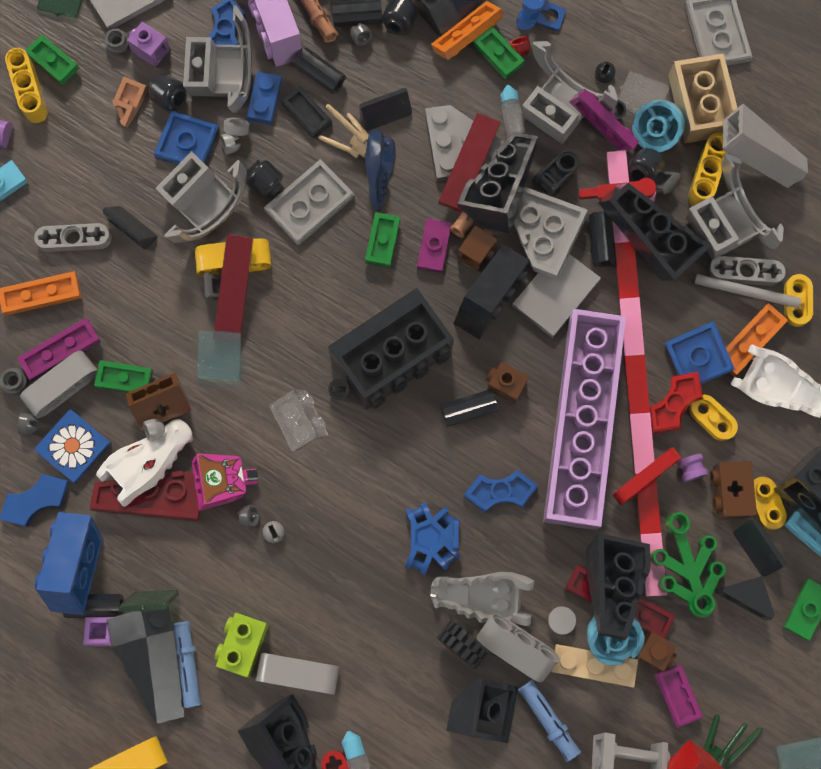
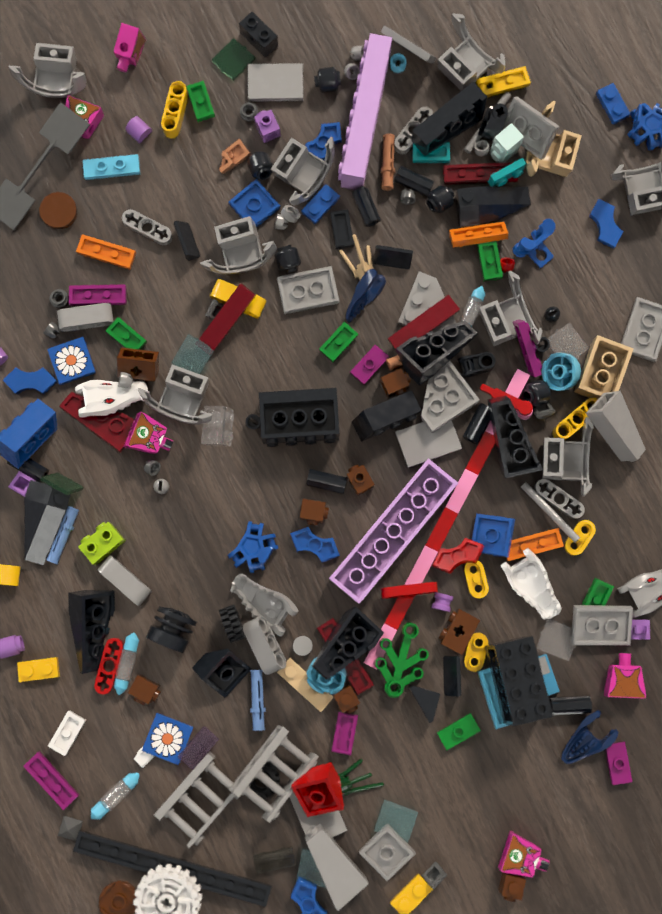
camera: 30 degrees right, 5 degrees up
(234, 409) = (181, 396): none -> light grey piece
(393, 697) = (171, 629): none -> black wheel
(476, 452) = (313, 511): none -> reddish brown brick

